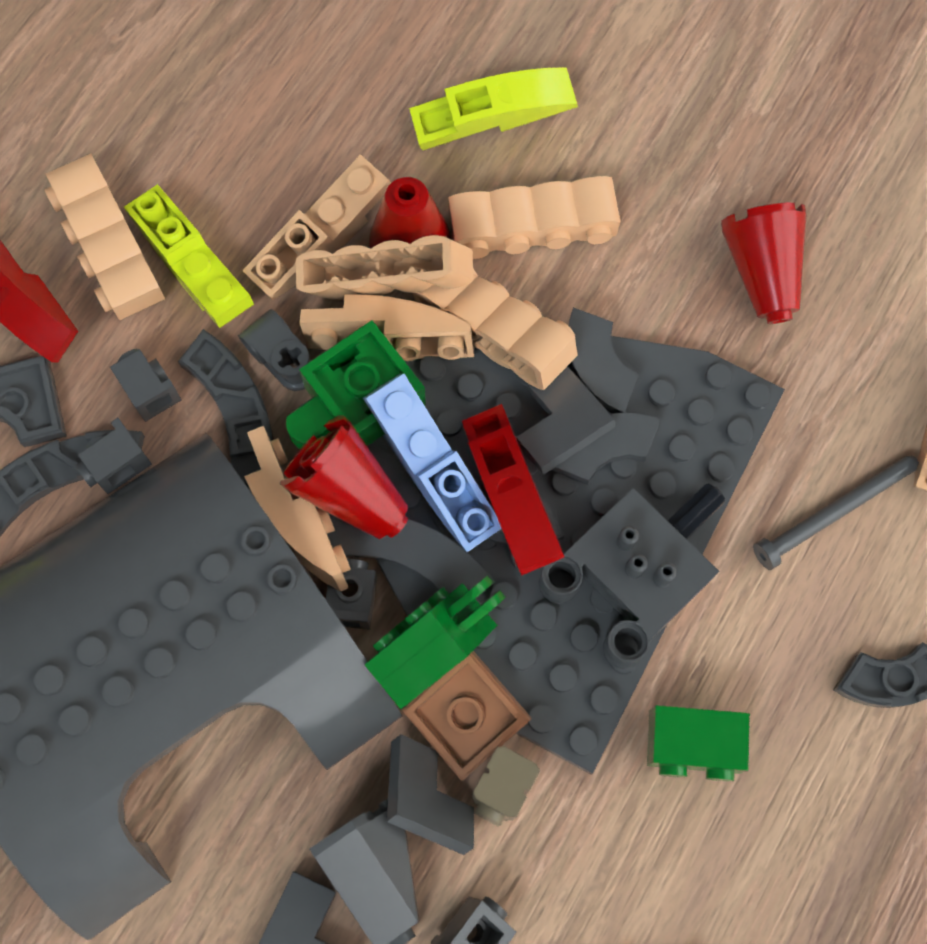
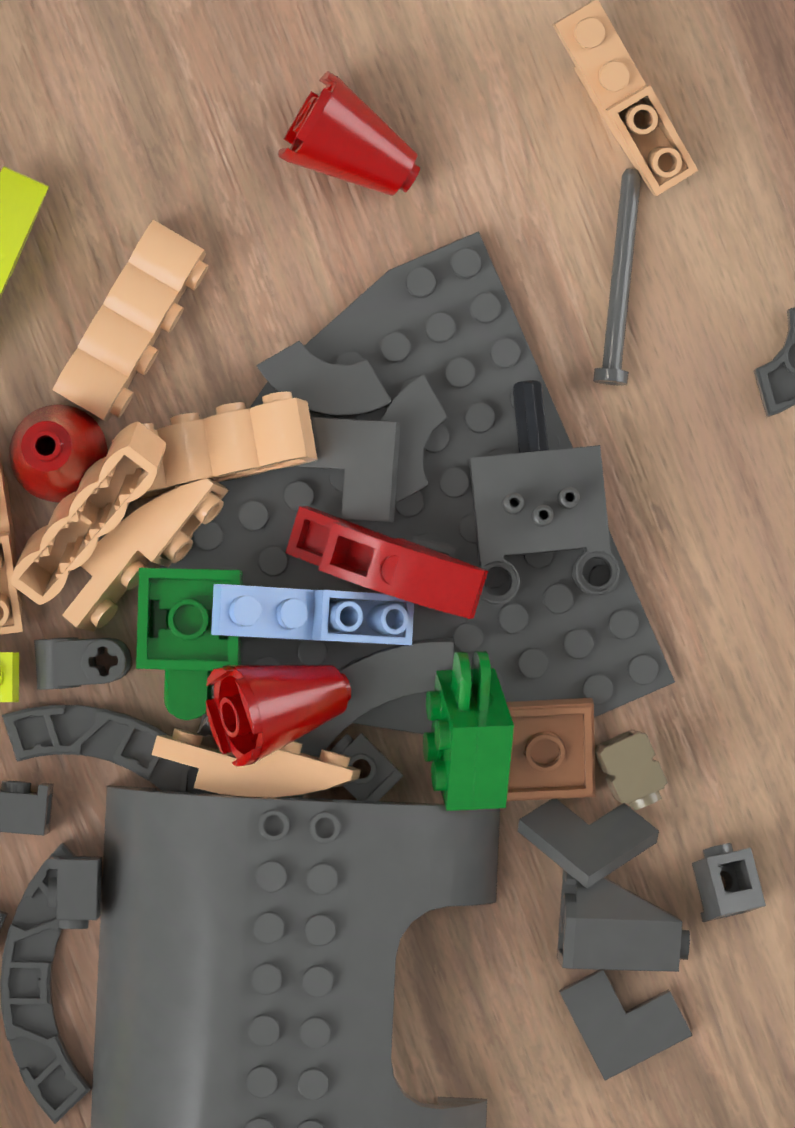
camera: 60 degrees left, 15 degrees up
(698, 741) = (720, 575): green brick -> none

